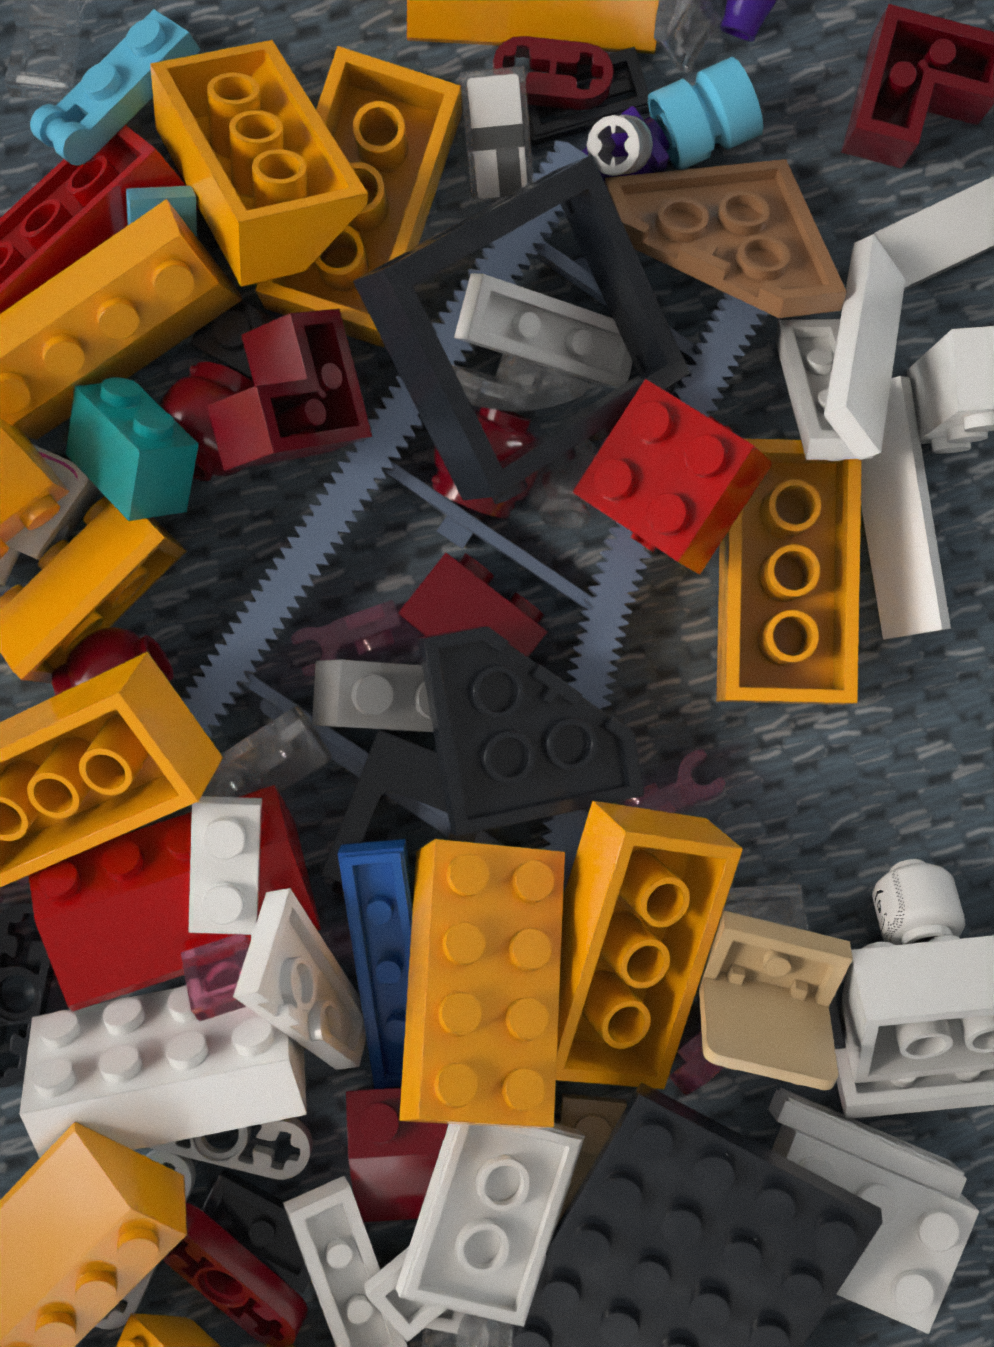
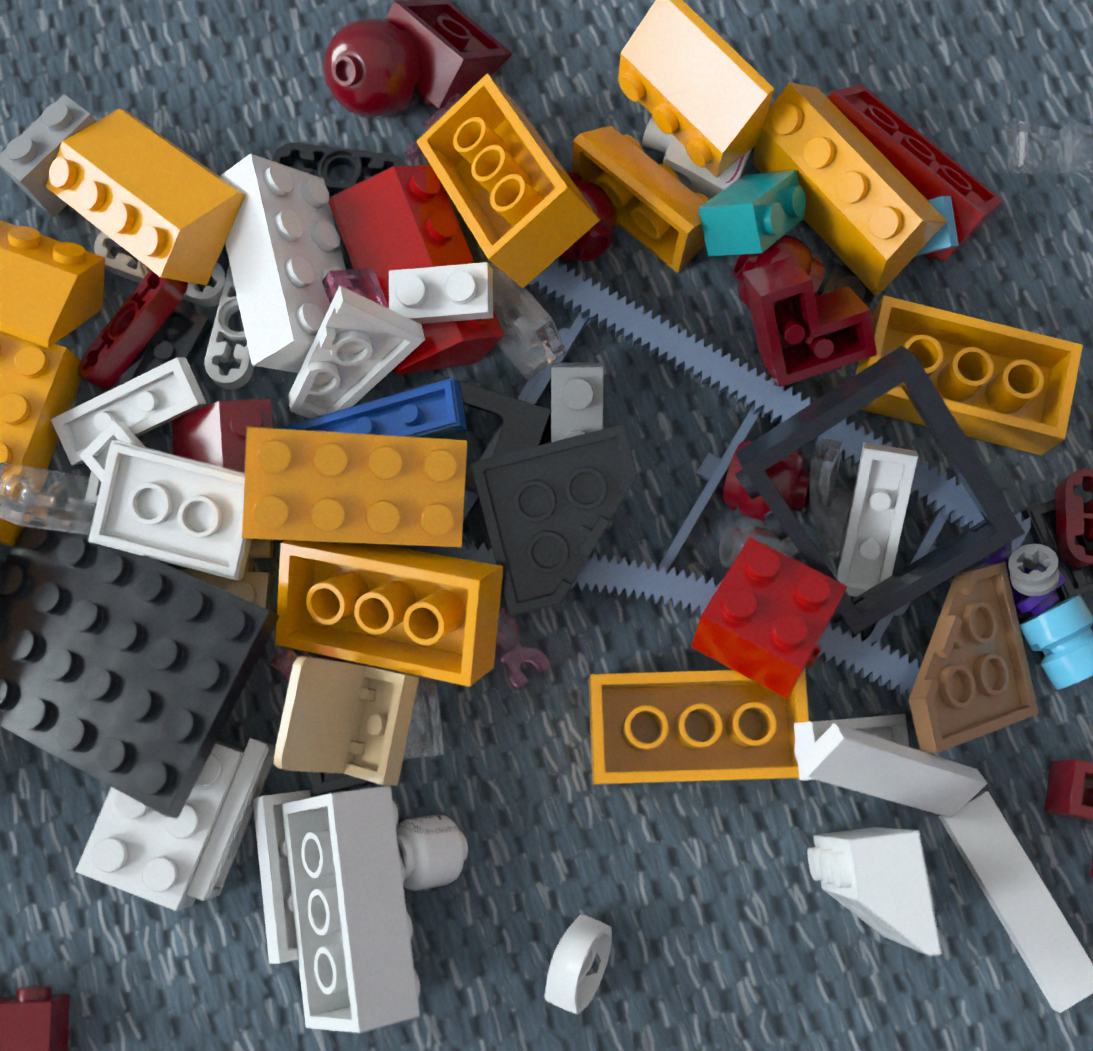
camera: 85 degrees right, 10 degrees down
(111, 90) = (1024, 197): medium azure plate -> none
(255, 158) = (986, 288): light orange slope -> none
(366, 629) = (627, 399): clear pink plate -> none
(459, 598) = (660, 471): dark red brick -> none
(496, 132) = (1038, 473): slope -> none
(902, 526) = (755, 821): white tile -> none

